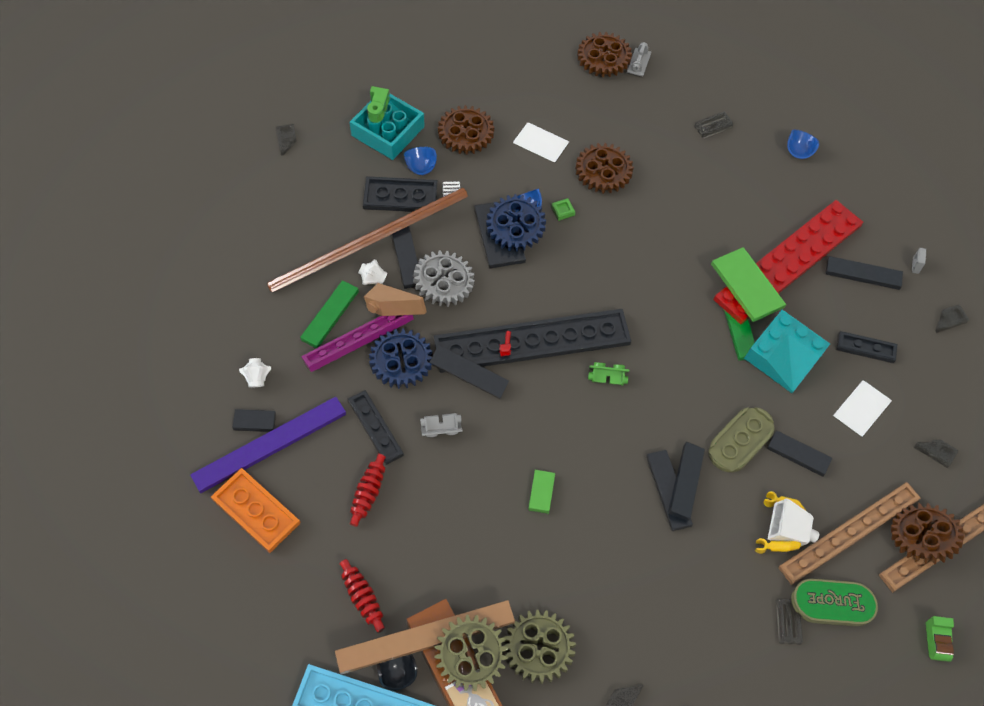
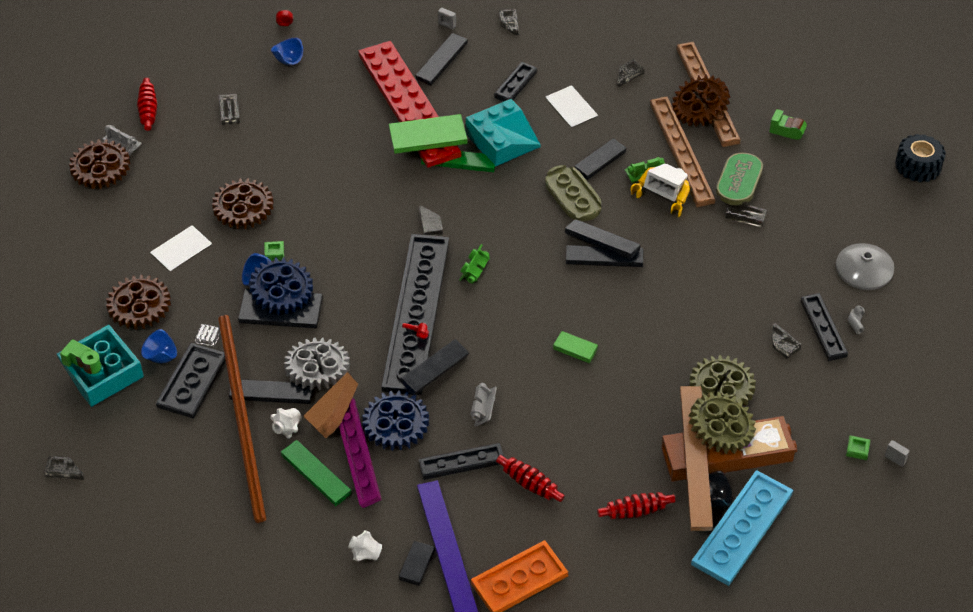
camera: 70 degrees left, 10 degrees down
(647, 322) = (430, 222): none -> clear smoke tile
(688, 63) = (147, 104): none -> red piece
(795, 491) = (636, 170): none -> bright green hinge
(845, 129) = (284, 18): none -> red tile

